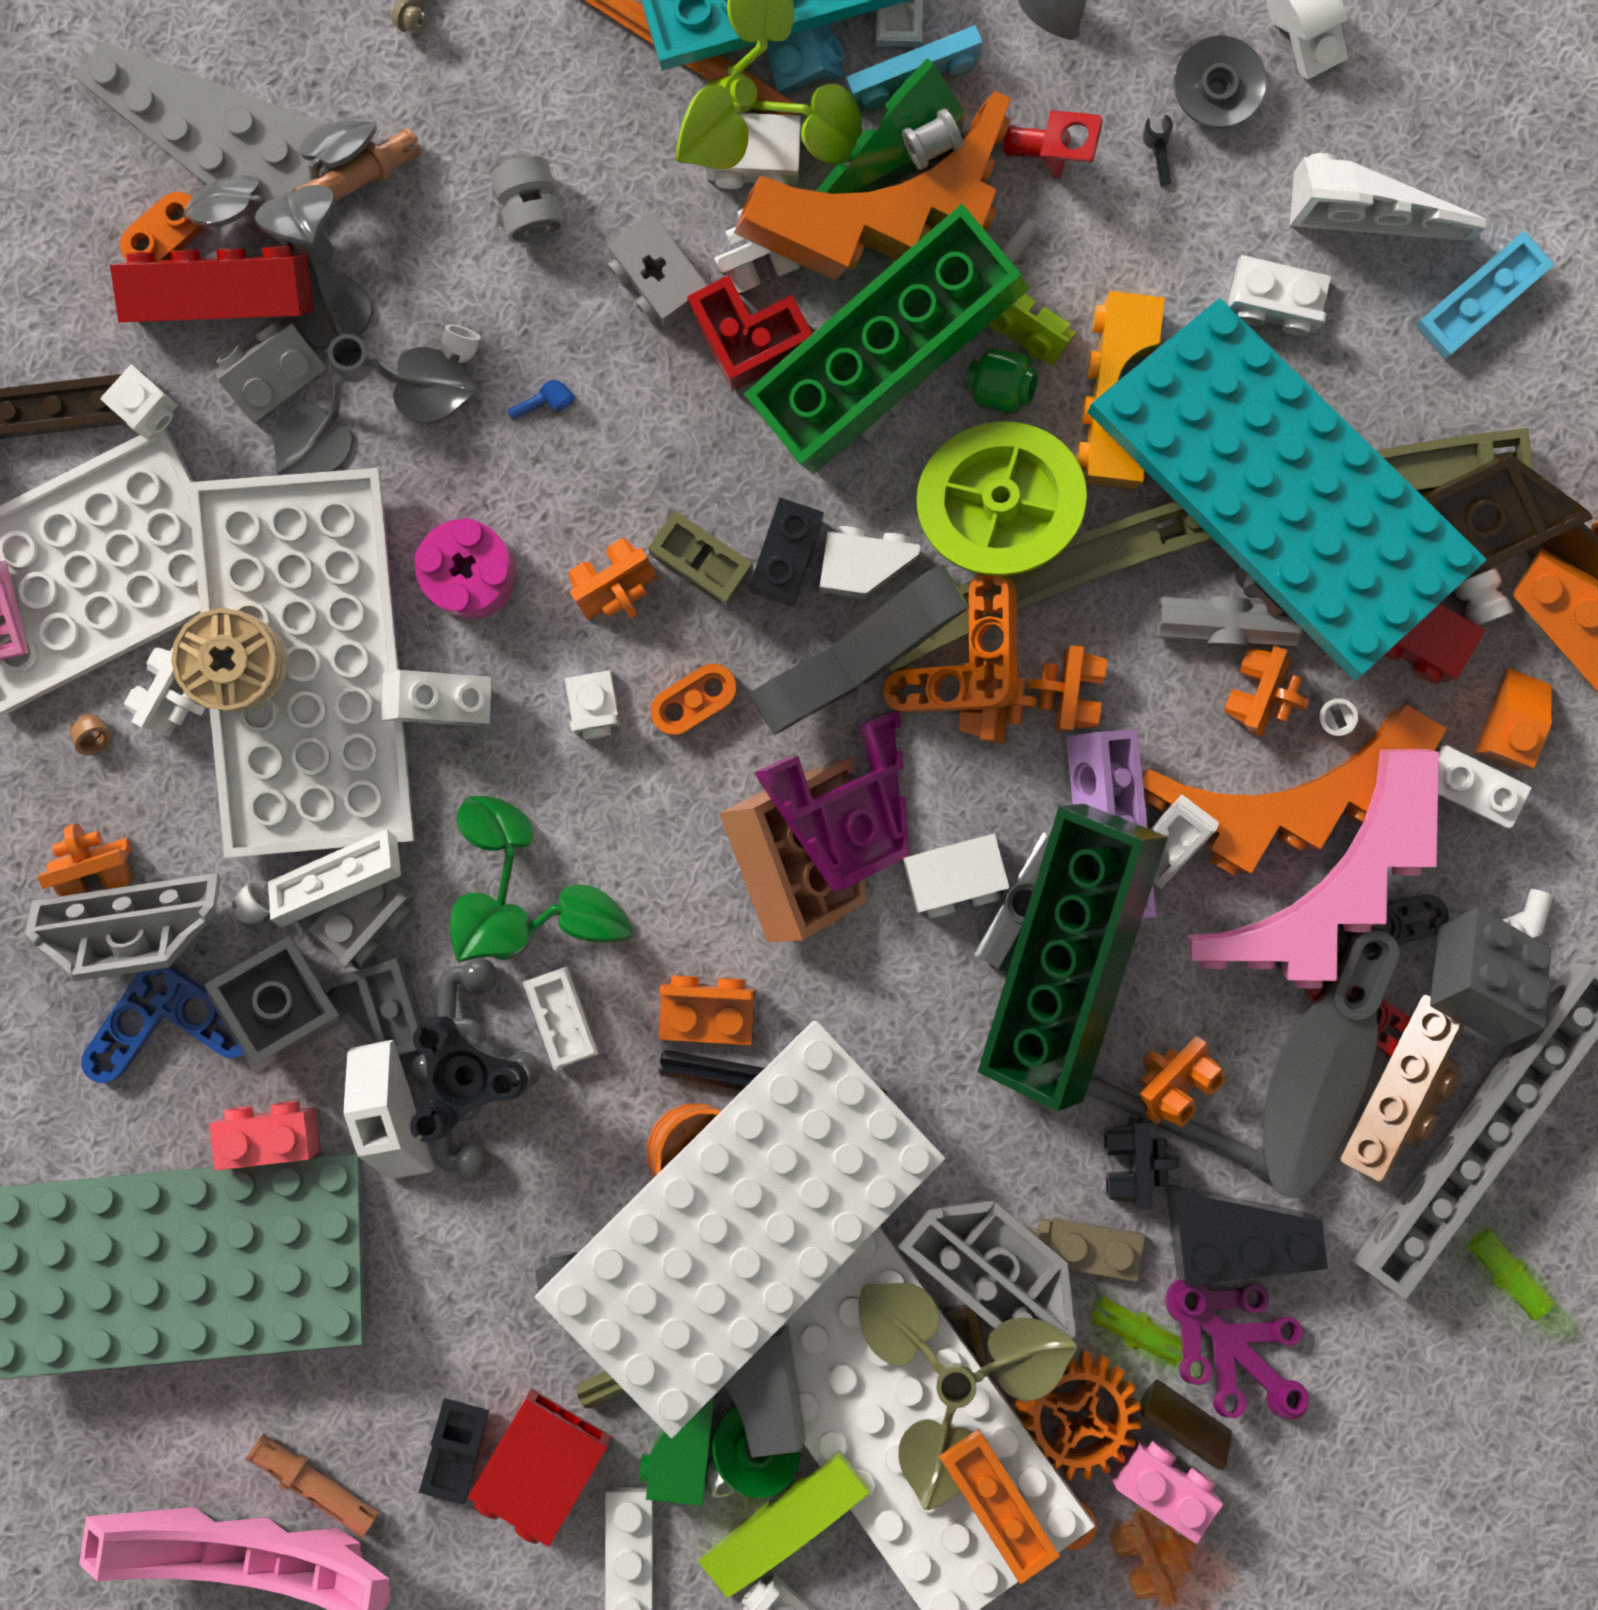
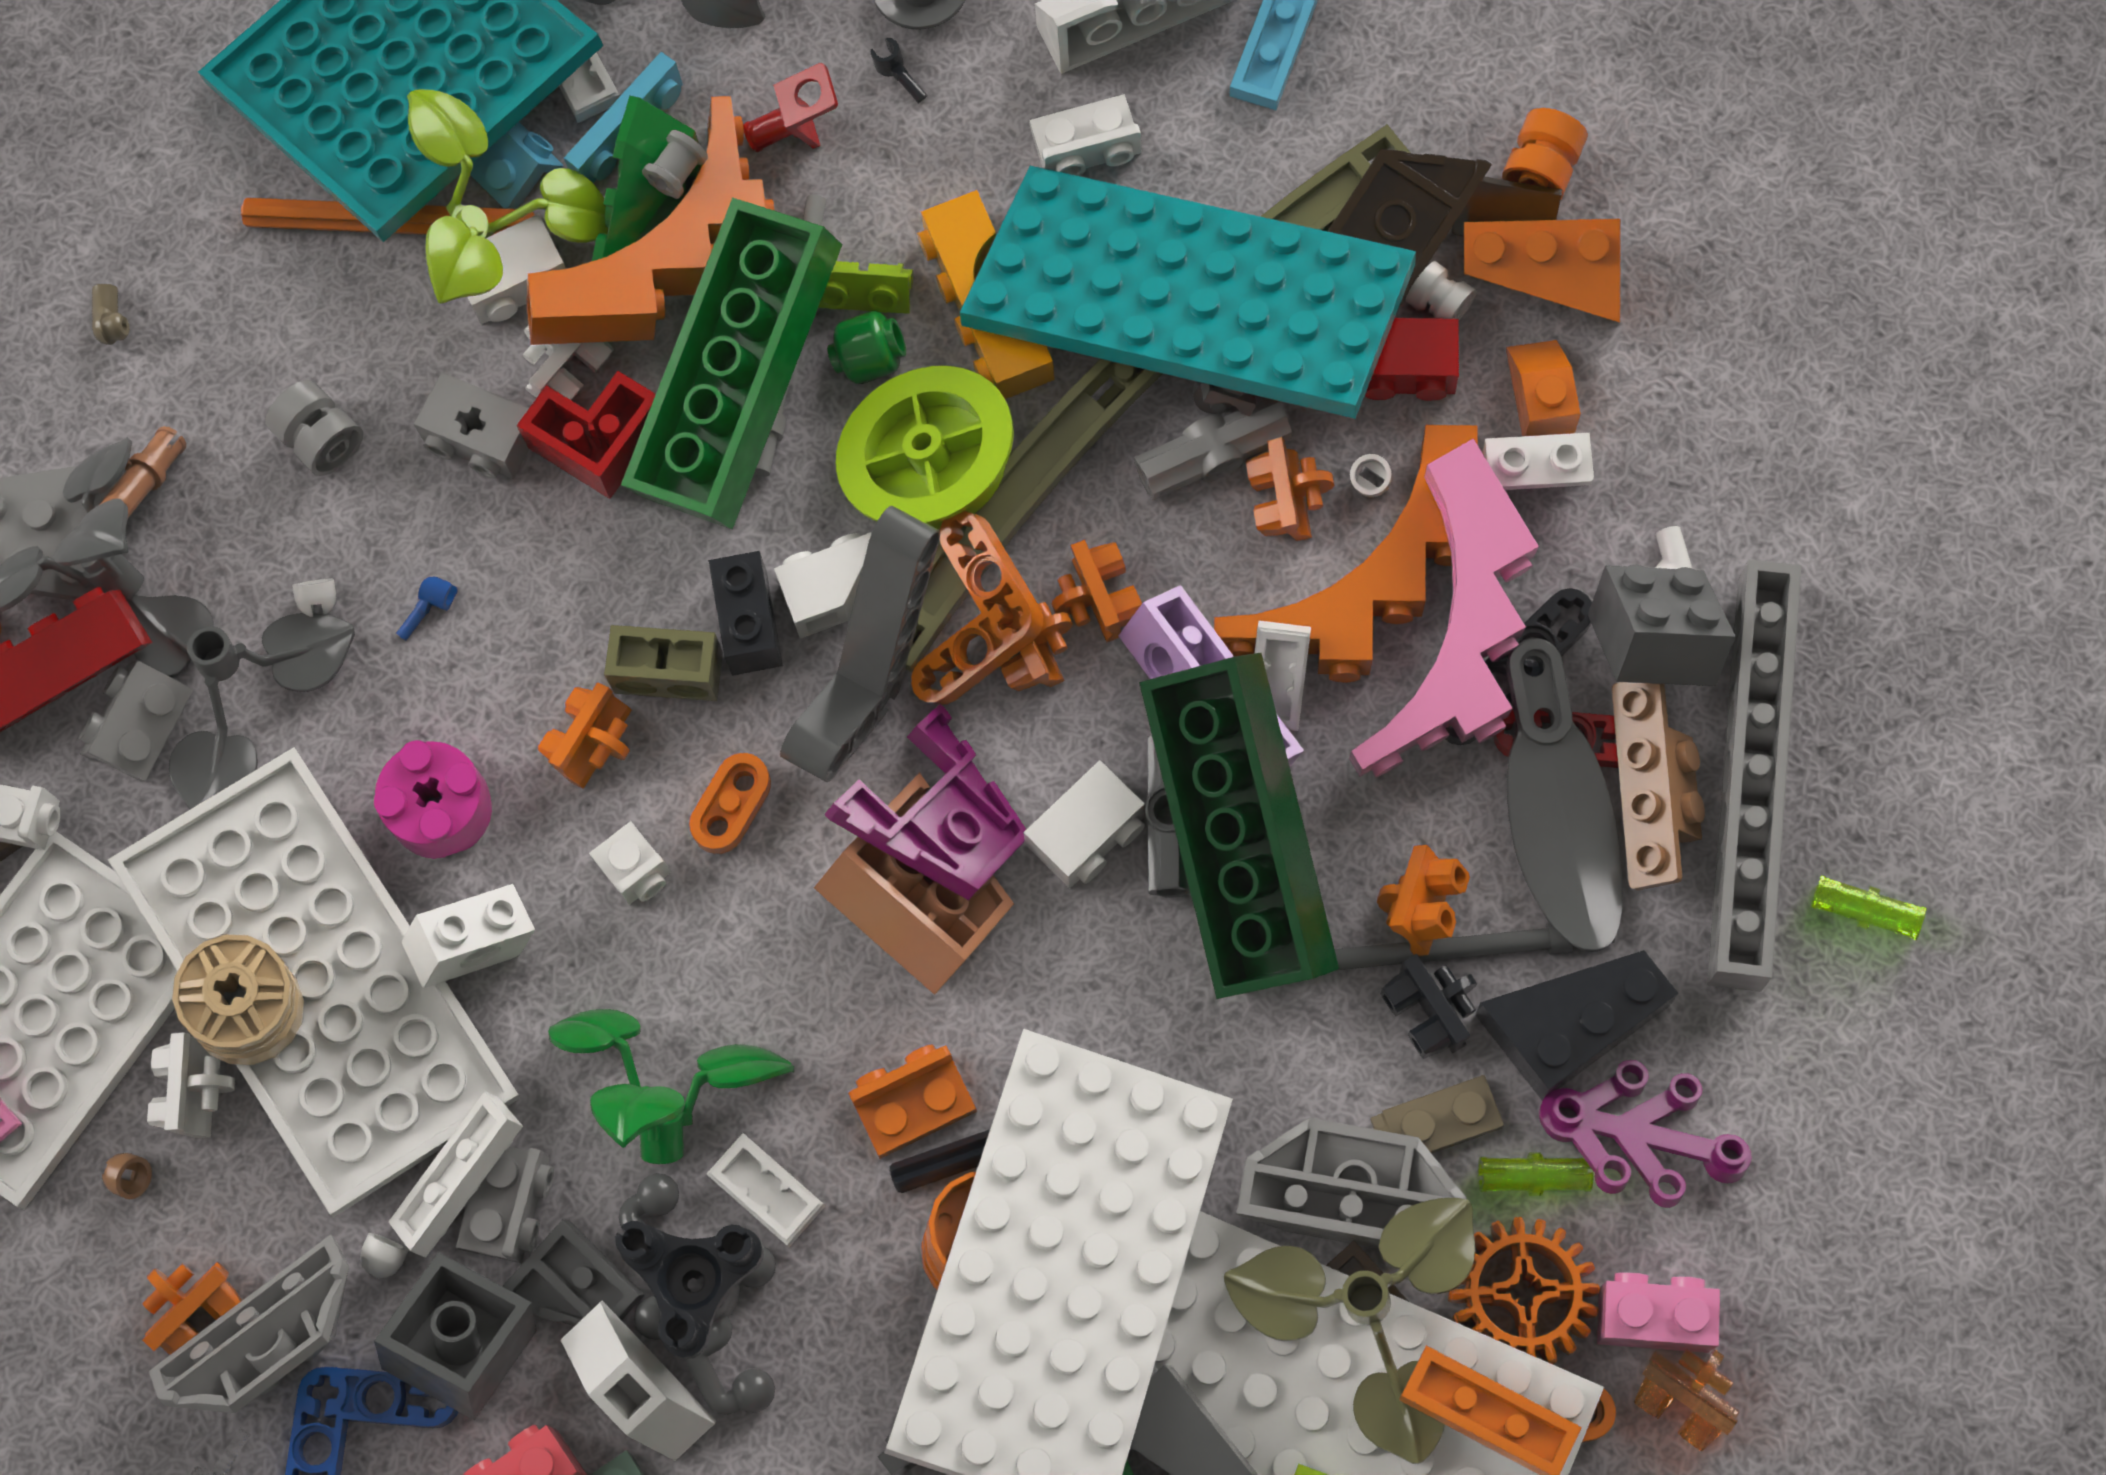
camera: 25 degrees left, 15 degrees down
(1186, 1424) = (1640, 1242): dark brown slope -> none

